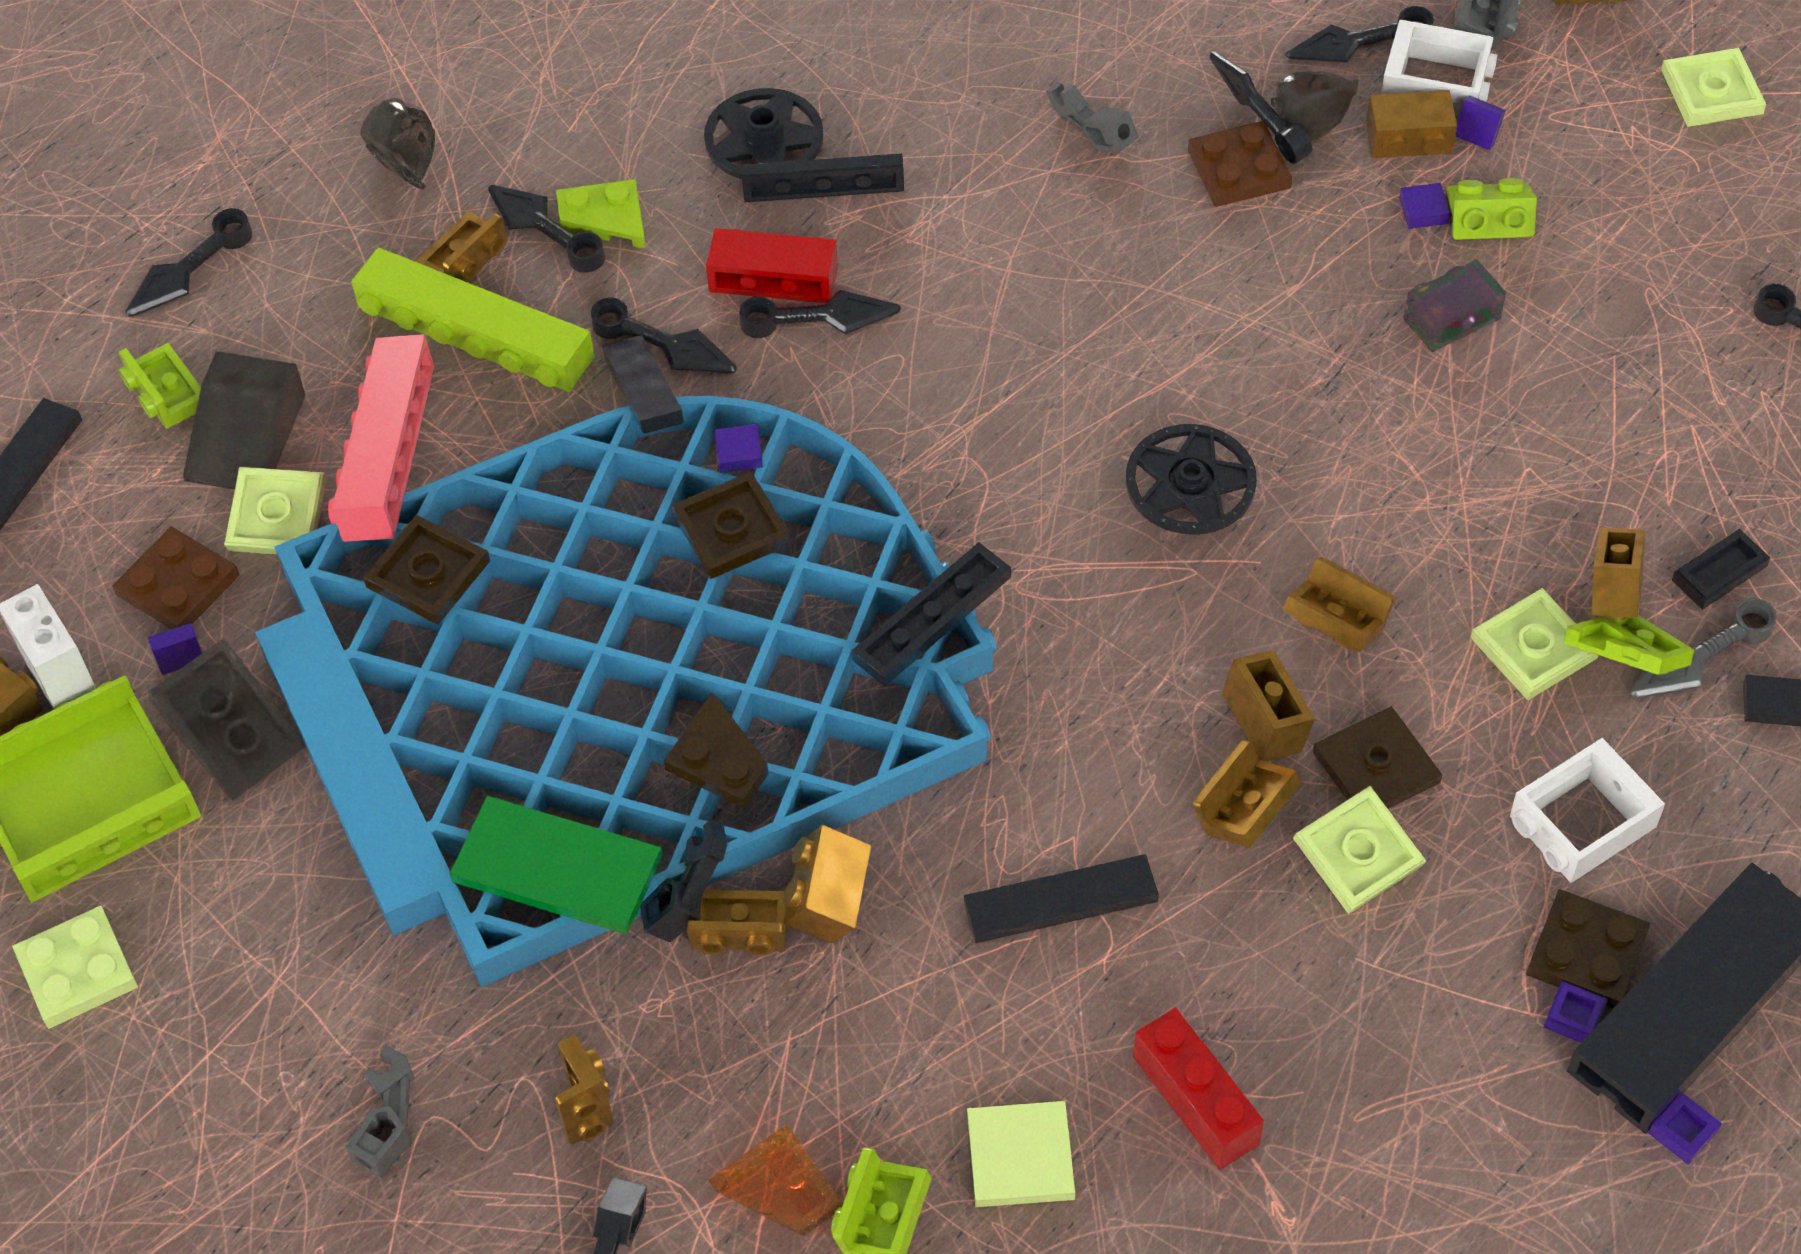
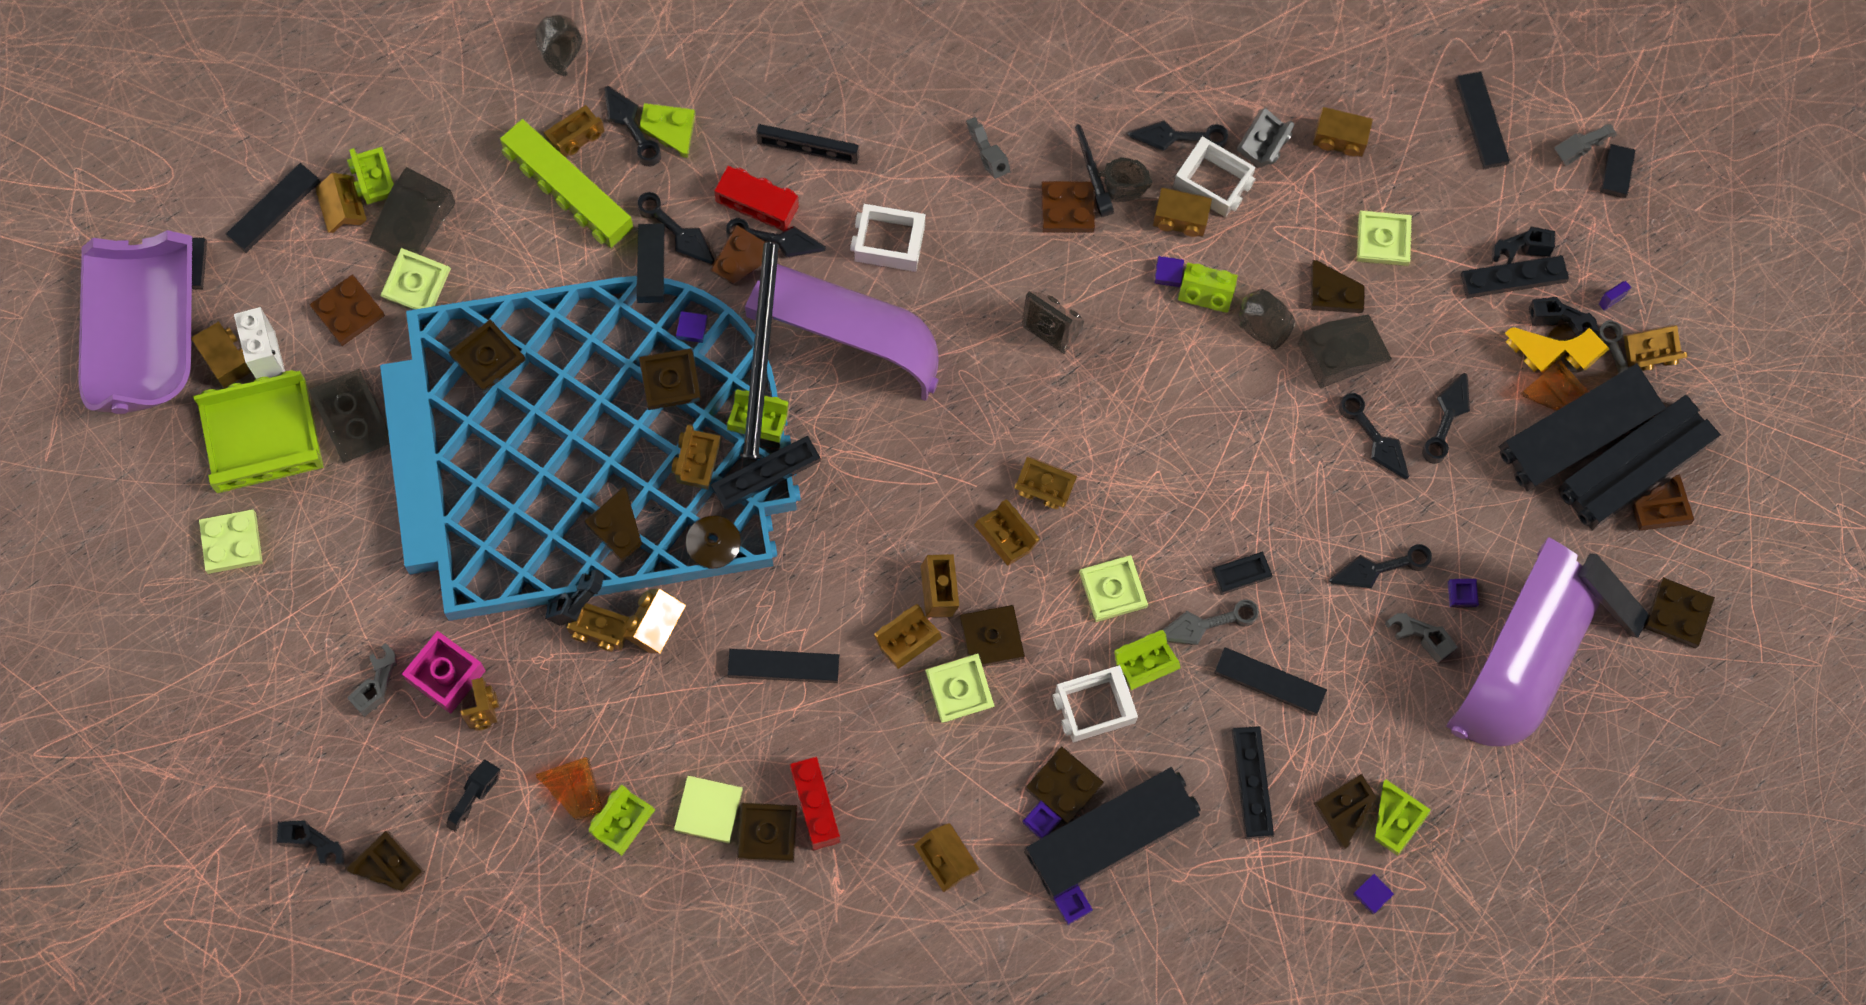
camera: 10 degrees right, 15 degrees up
(120, 434) = (340, 202): none -> pearl gold panel
(171, 281) = (395, 98): black piece -> none
(175, 648) = (335, 358): dark purple tile -> none
(382, 439) = (487, 256): coral brick -> none
(500, 1059) = (443, 672): none -> dark pink brick
(556, 865) = (506, 566): green tile -> none
(763, 130) = (783, 98): black wheel -> none
(777, 344) = (738, 256): none -> reddish brown wing
(815, 622) = (696, 458): none -> pearl gold bracket
(868, 436) = (760, 351): none -> black axle
(888, 753) = (713, 554): none -> dark brown dish
(890, 534) = (773, 420): none -> lime bracket
(976, 362) = (854, 321): none -> medium lavender panel
(992, 291) = (887, 258): none -> white window
(1134, 1160) = (767, 832): none -> dark brown plate
(1191, 479) = (952, 423): black wheel -> none
(1284, 298) = (1051, 321): none -> clear smoke slope
(1367, 522) = (1045, 482): none -> pearl gold bracket
(1444, 1112) = (946, 856): none -> pearl gold panel
(1454, 305) = (1156, 349): brick -> none
(1479, 122) = (1224, 223): dark purple tile -> none
(1594, 222) = (1266, 318): none -> clear smoke helmet
(1618, 573) = (1173, 563): pearl gold brick -> none
(1632, 643) = (1164, 607): lime wing -> none
(1637, 721) = (1146, 659): none -> lime bracket
(1676, 168) = (1334, 290): none -> dark brown wing
(1722, 237) = (1343, 349): none -> clear smoke slope

